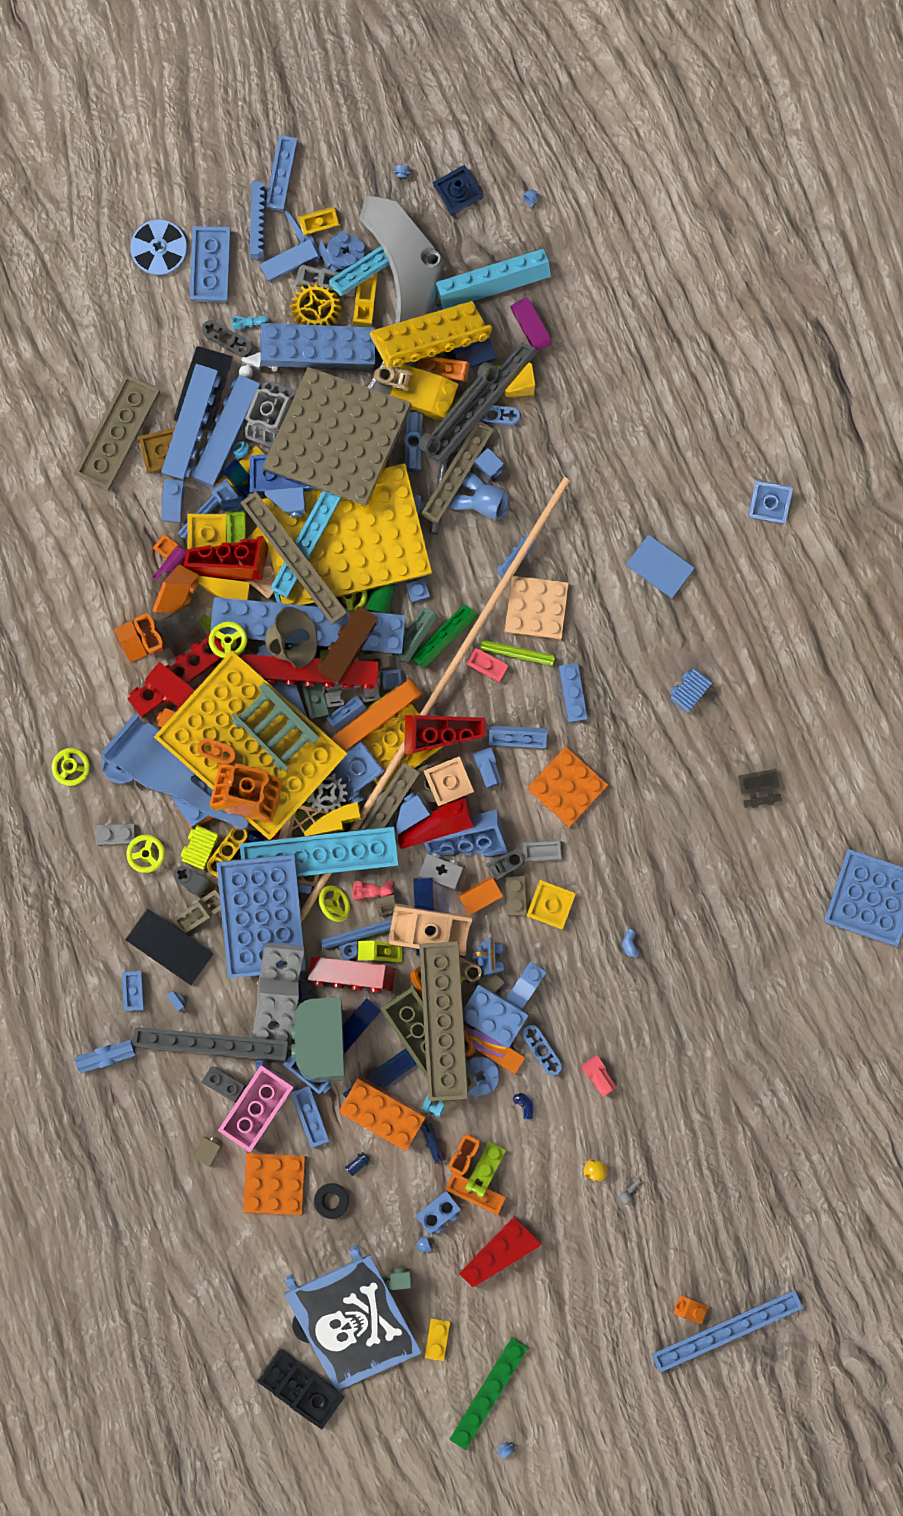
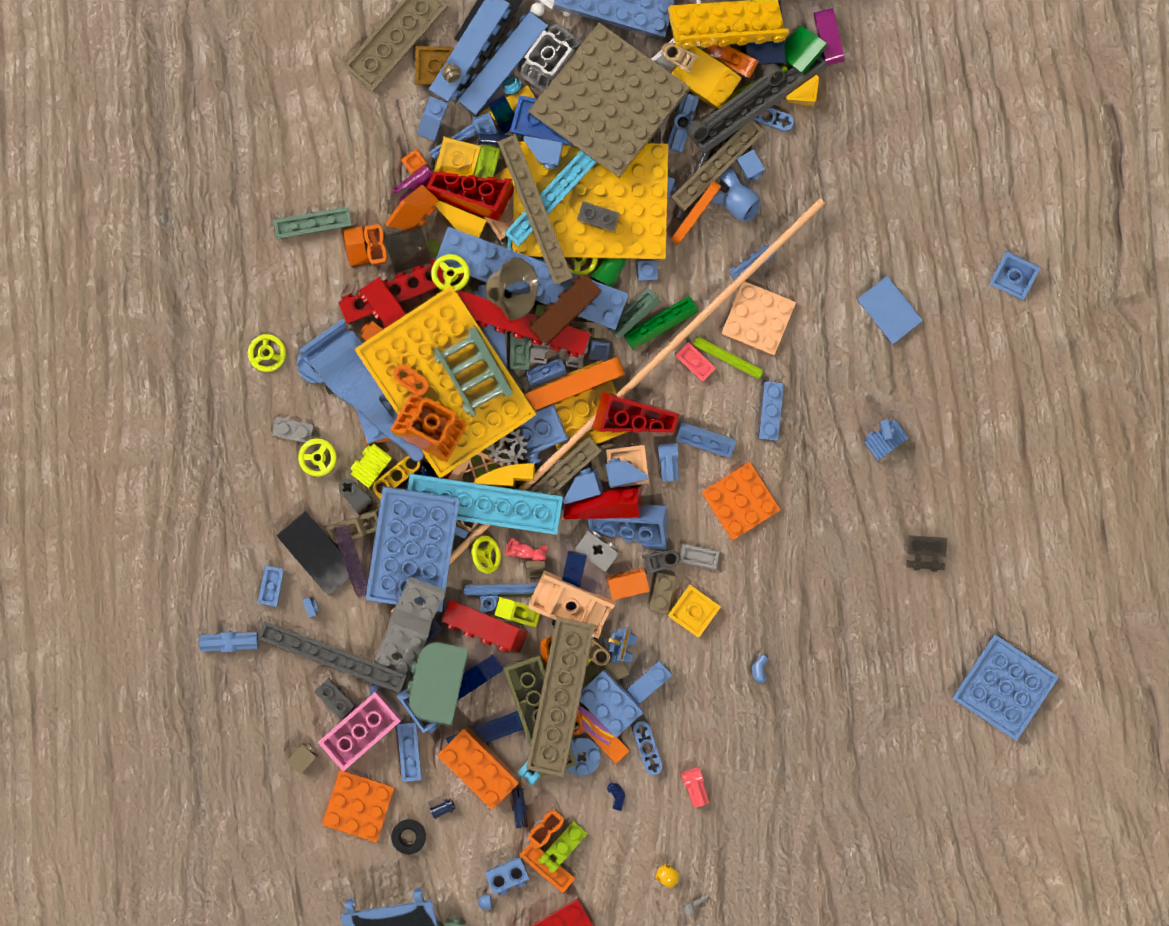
camera: 15 degrees right, 5 degrees up
(82, 630) = (312, 223): none -> sand green plate
(179, 450) = (451, 72): none -> dark tan plate
(204, 943) = (351, 560): none -> clear purple beam
(356, 549) = (598, 217): none -> dark grey brick
(446, 788) = (623, 473): none -> medium blue slope
(449, 522) = (696, 212): none -> orange beam
(510, 342) = (803, 49): none -> green slope
(689, 679) = (886, 429): none -> medium blue plate

